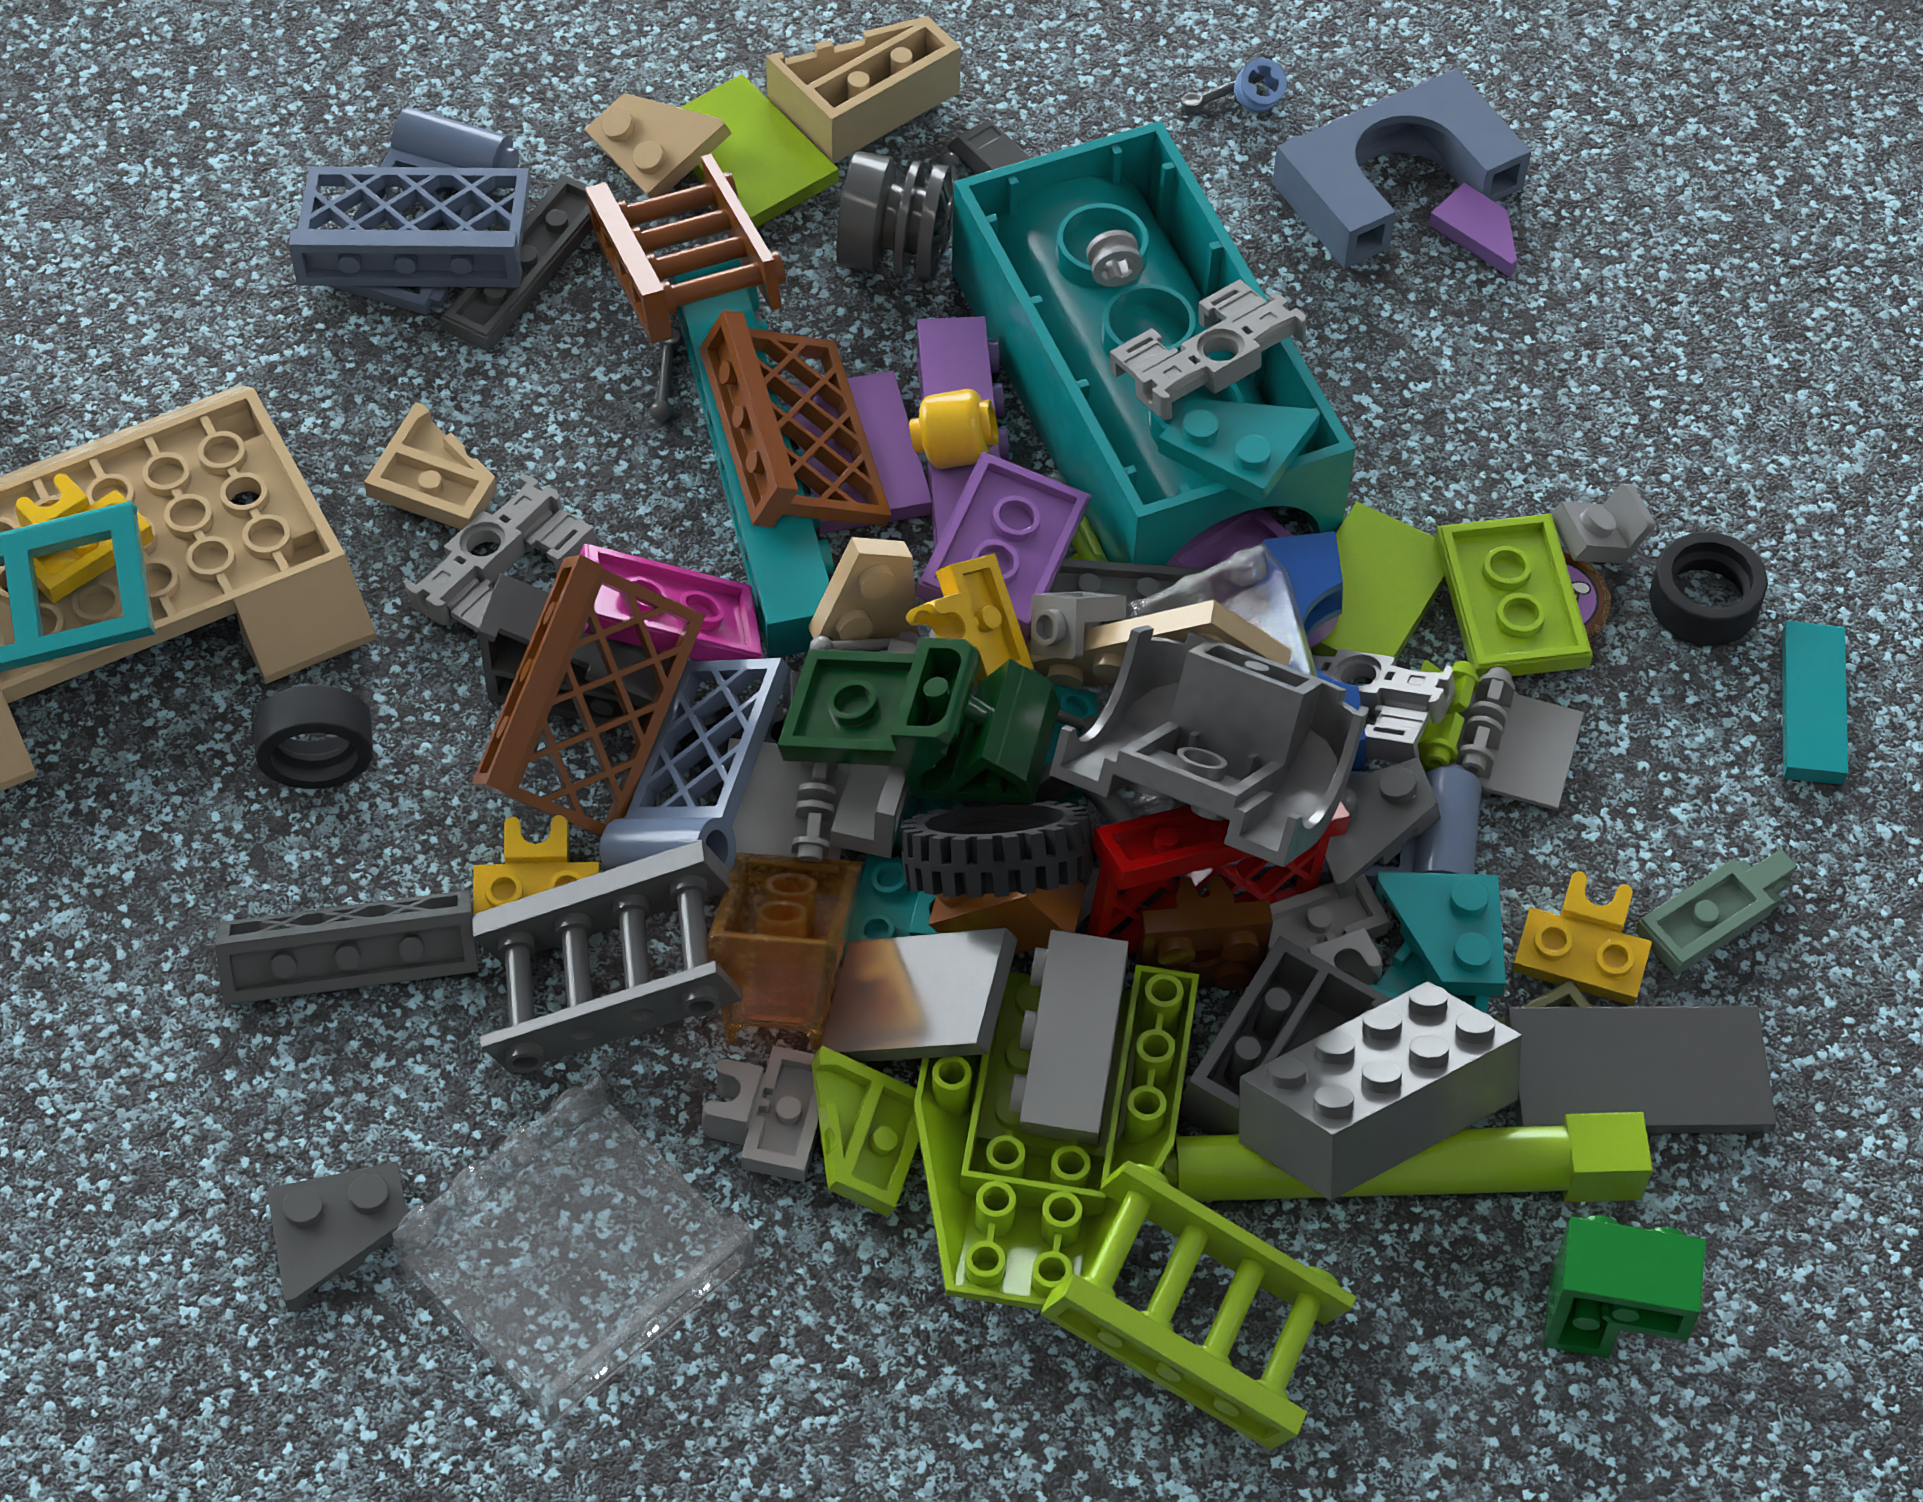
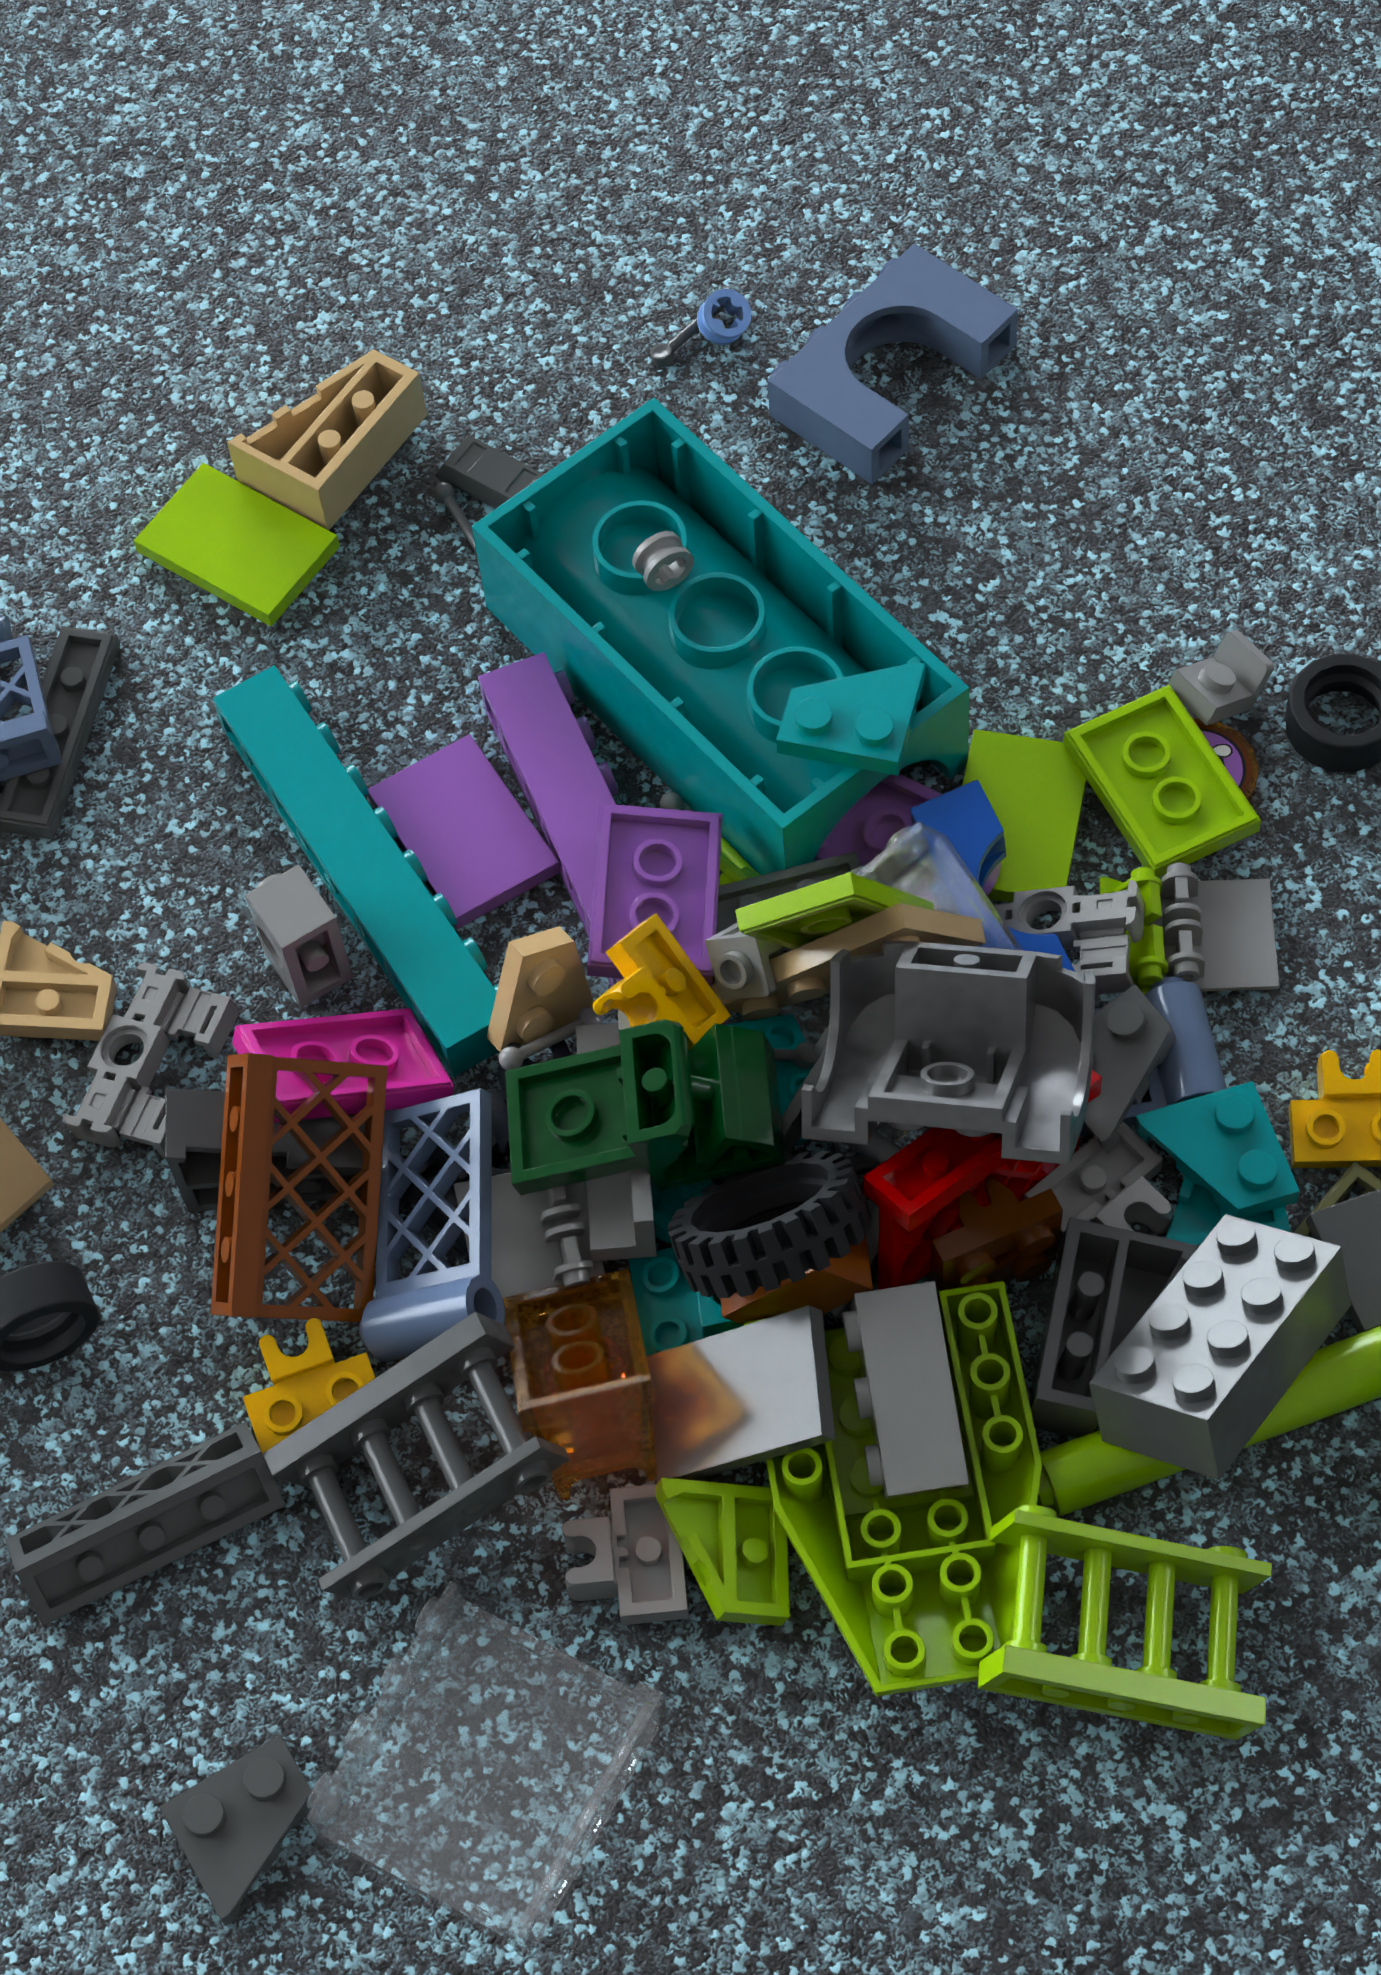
camera: 10 degrees left, 5 degrees up
(643, 273) = (187, 715): dark orange fence -> none
(655, 140) = (142, 563): tan wing -> none
(661, 409) = (232, 771): dark grey hinge -> none
(672, 489) = (299, 935): none -> light grey brick
(756, 424) = (360, 842): dark orange fence -> none
(894, 216) = (416, 573): dark grey wheel -> none
(954, 428) = (561, 785): yellow head -> none
(1137, 585) = (820, 909): none -> lime tile
(1243, 327) = (773, 668): light grey piece -> none
(1477, 226) = (989, 401): medium lavender tile -> none

